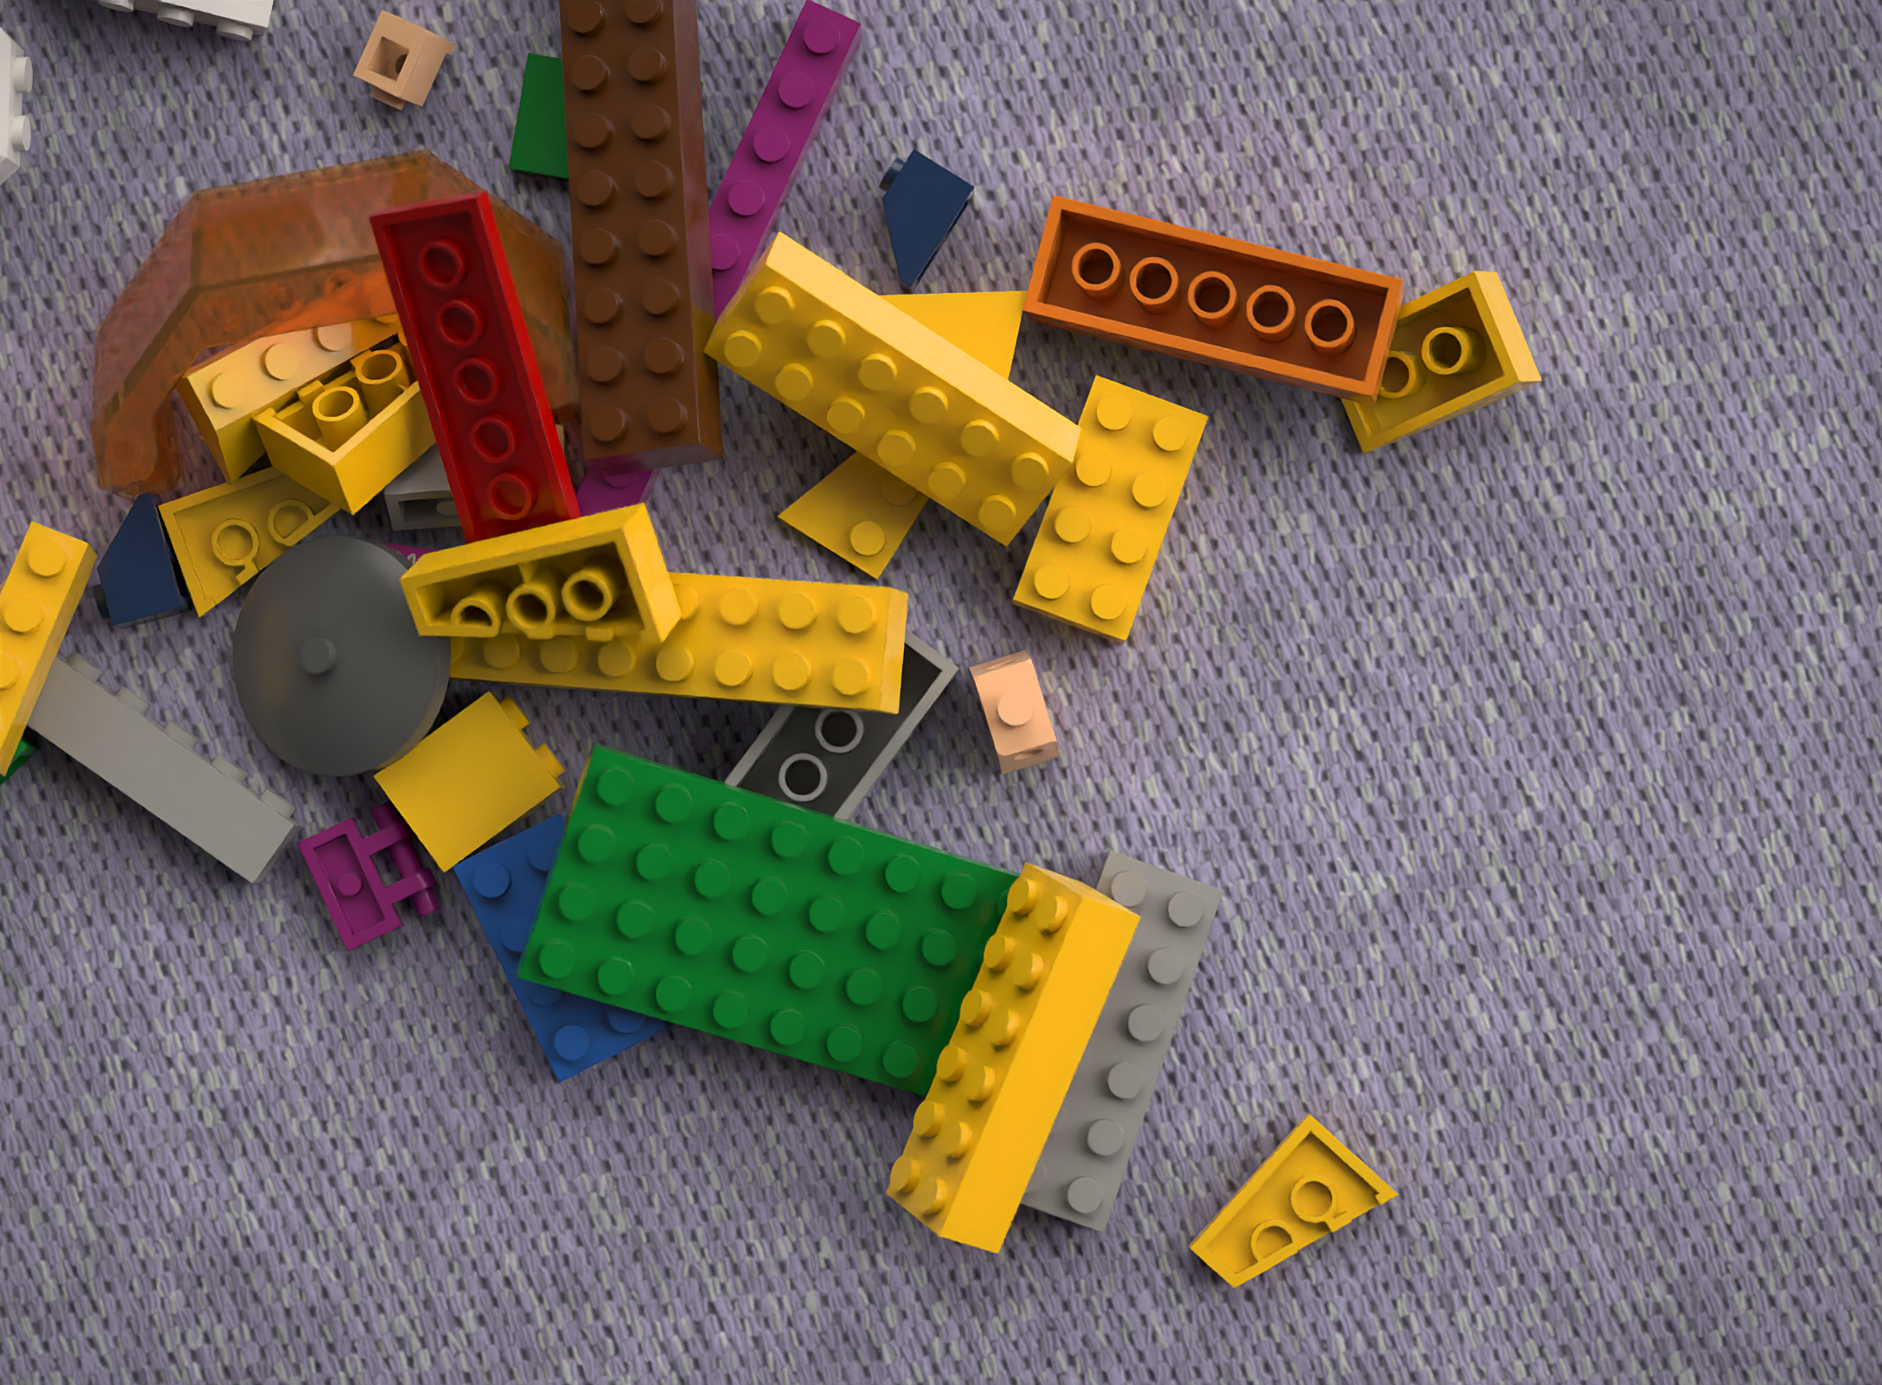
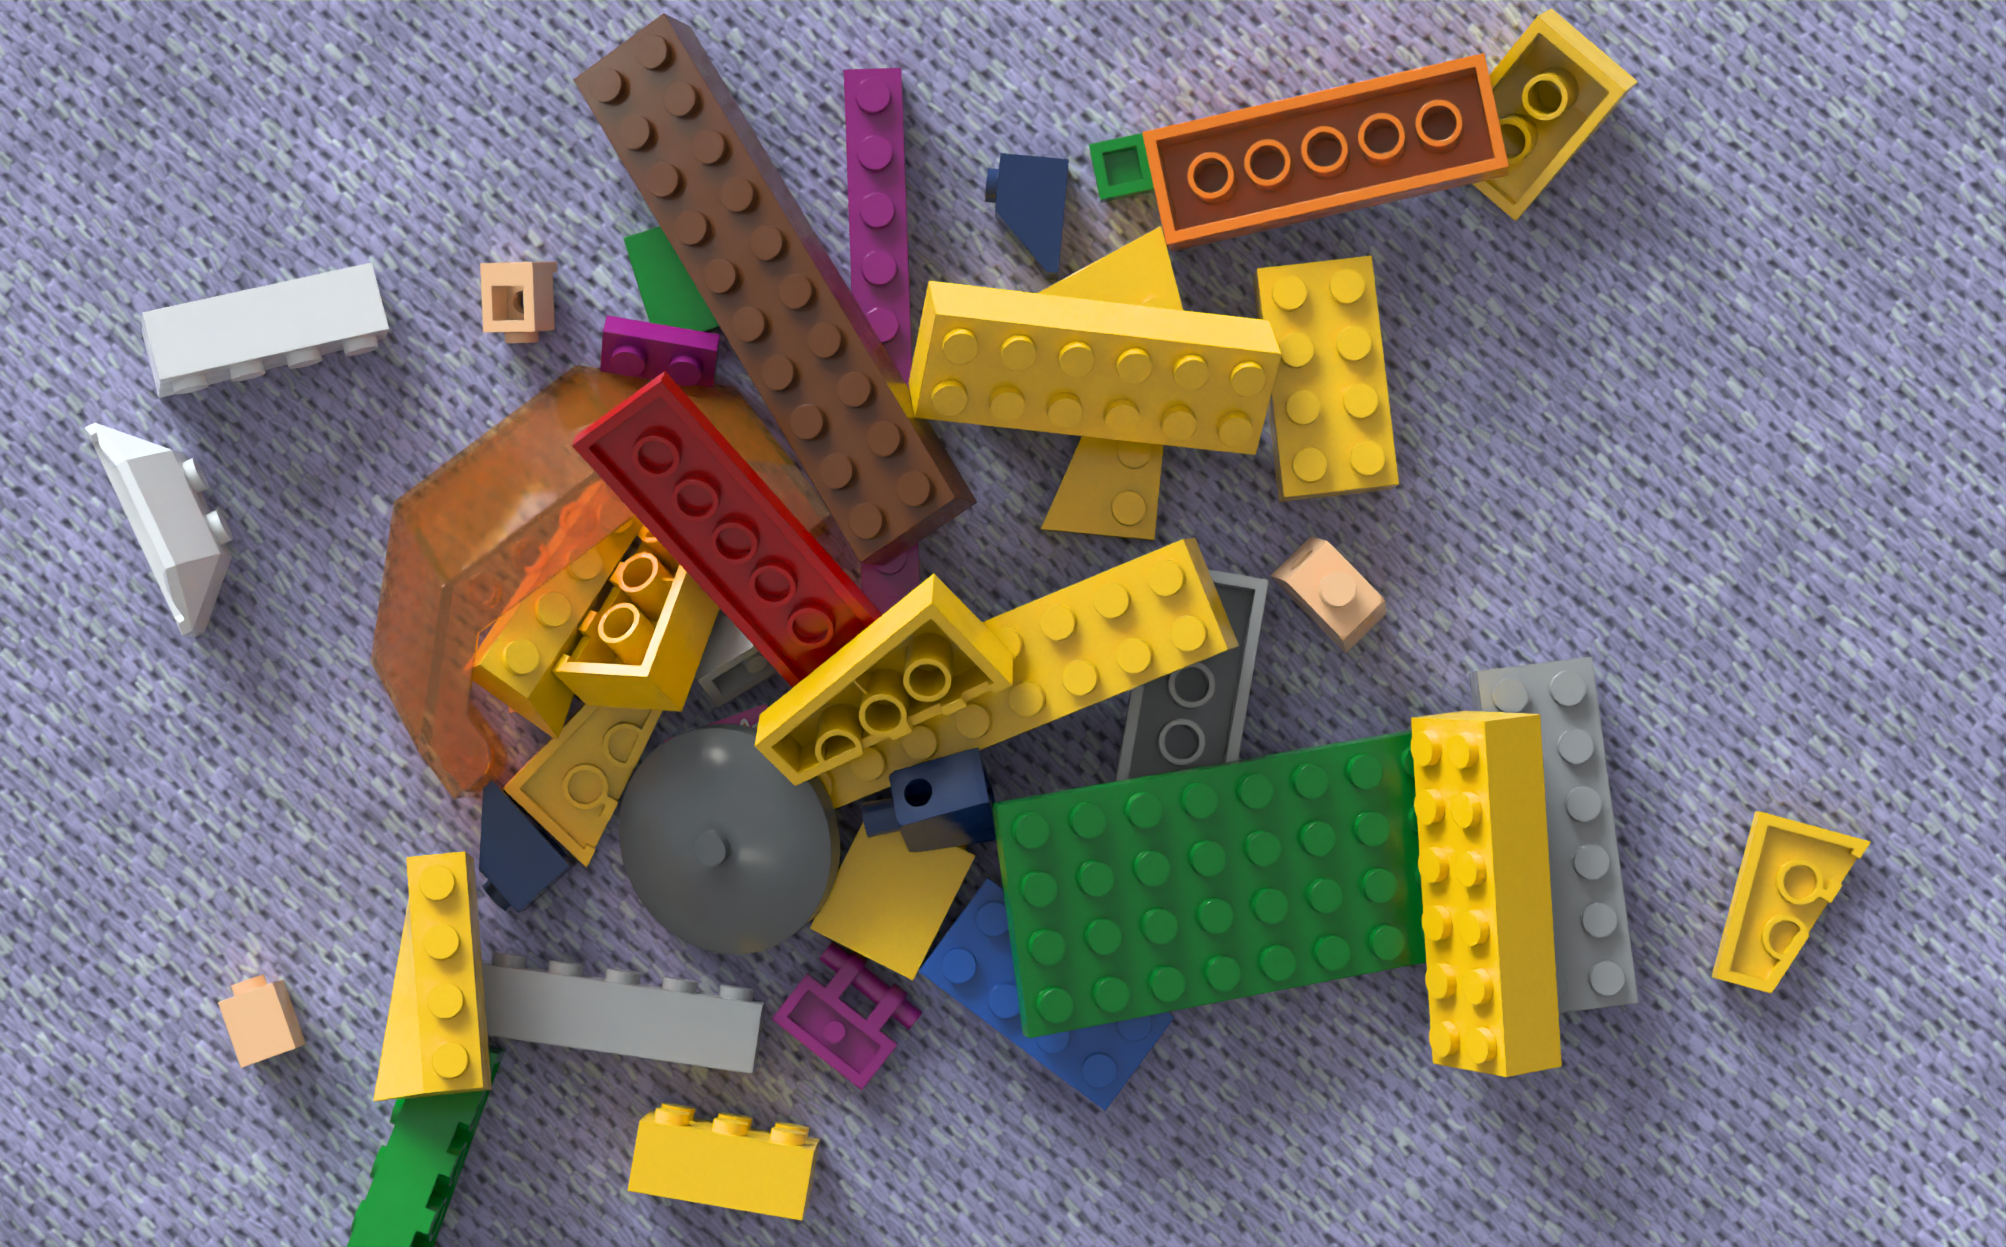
camera: 25 degrees left, 0 degrees up
(185, 952) = (724, 1161): none -> yellow brick
(507, 174) = (652, 348): none -> magenta plate
(544, 718) = (936, 804): none -> dark blue torso
(1019, 219) = (1121, 168): none -> green plate

